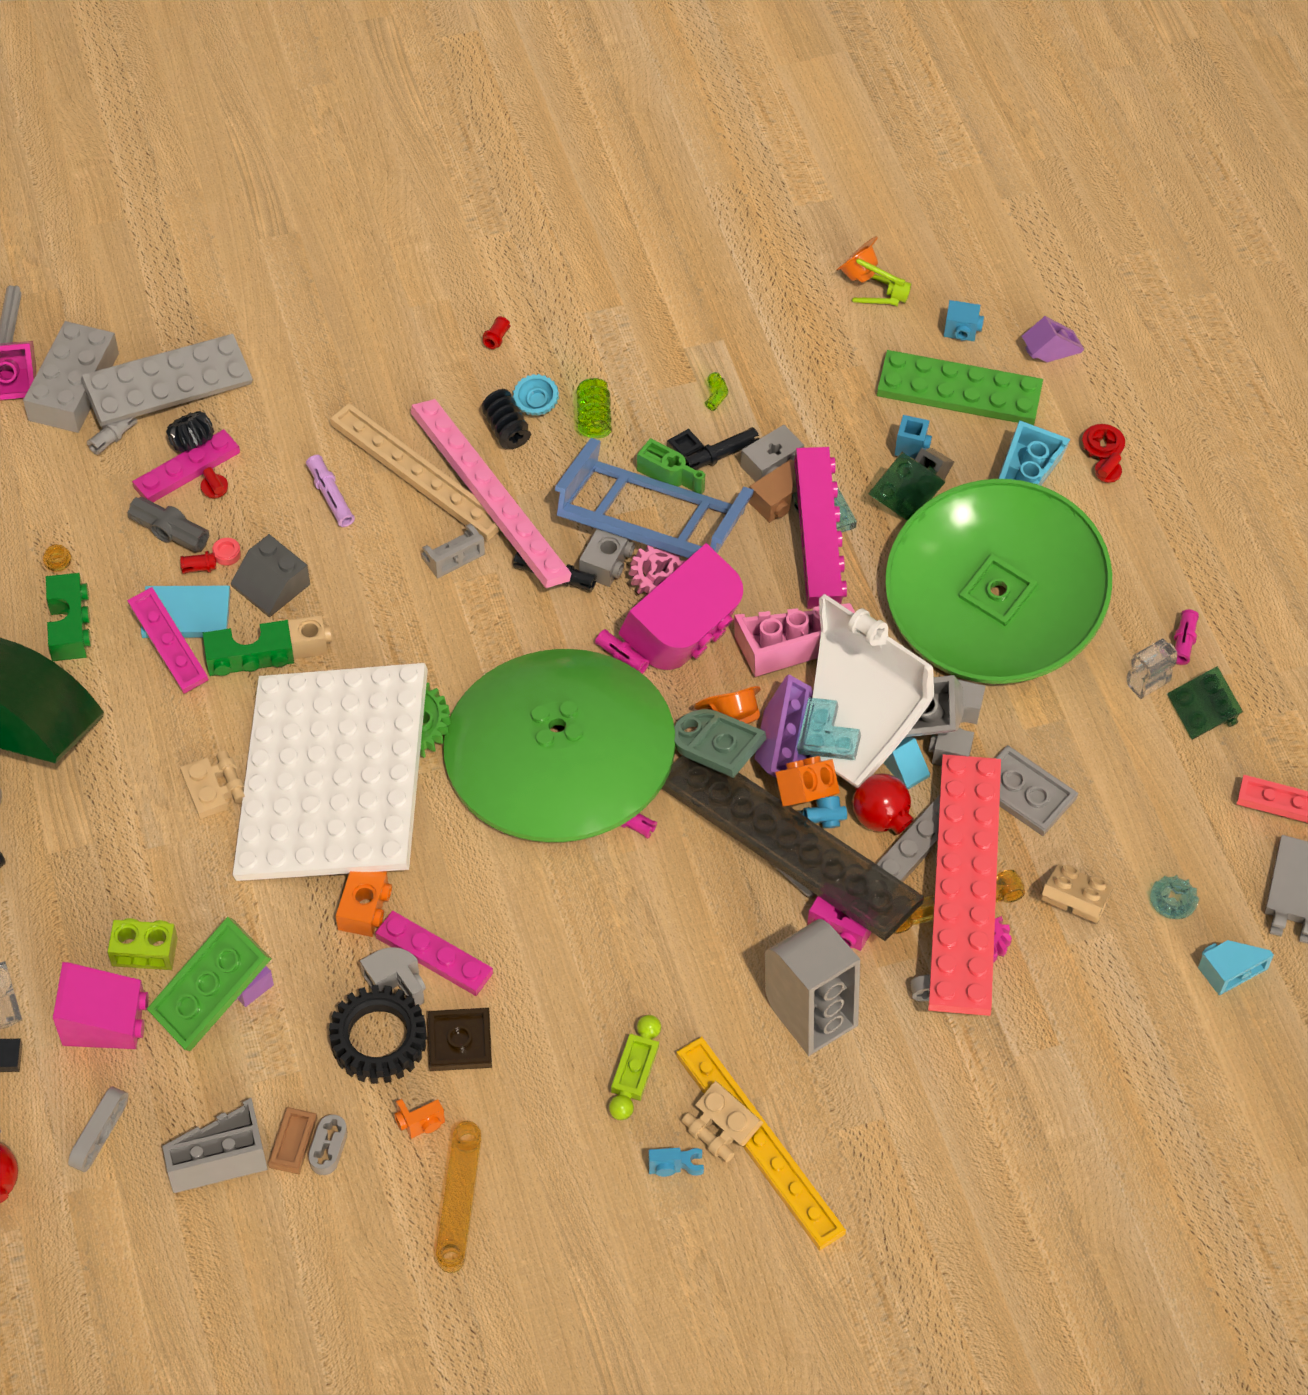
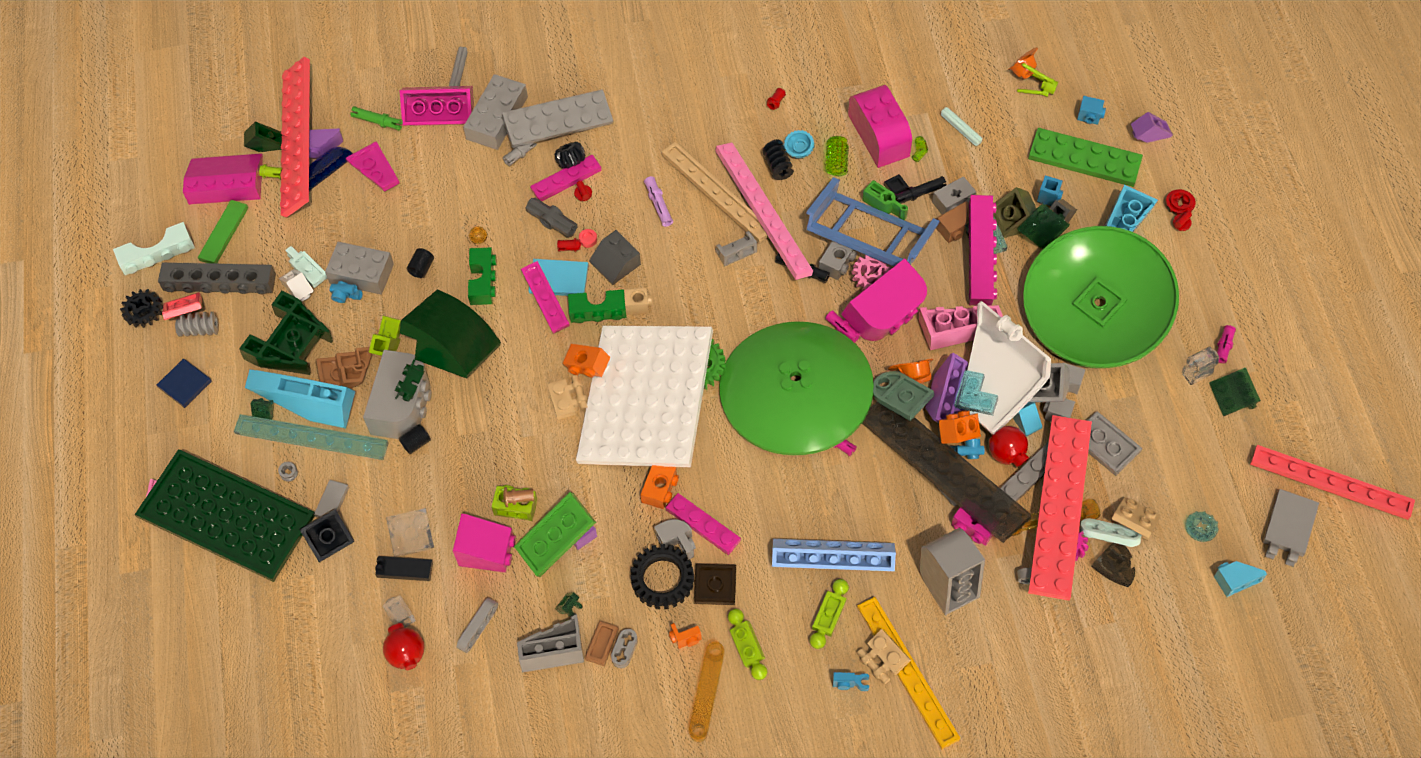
camera: 10 degrees right, 5 degrees up
(147, 932) = (517, 496): none -> medium nougat pin
(235, 1086) = (567, 603): none -> clear green tile
(238, 727) = (586, 360): none -> orange brick
(515, 1122) = (747, 644): none -> lime plate
(635, 980) = (833, 555): none -> light blue brick
(655, 359) = (881, 125): none -> dark pink brick
(775, 355) = (961, 126): none -> light aqua axle
(860, 469) = (1013, 211): none -> olive slope
(1041, 915) = (1110, 532): none -> light aqua plate
(1054, 960) = (1116, 565): none -> clear smoke brick

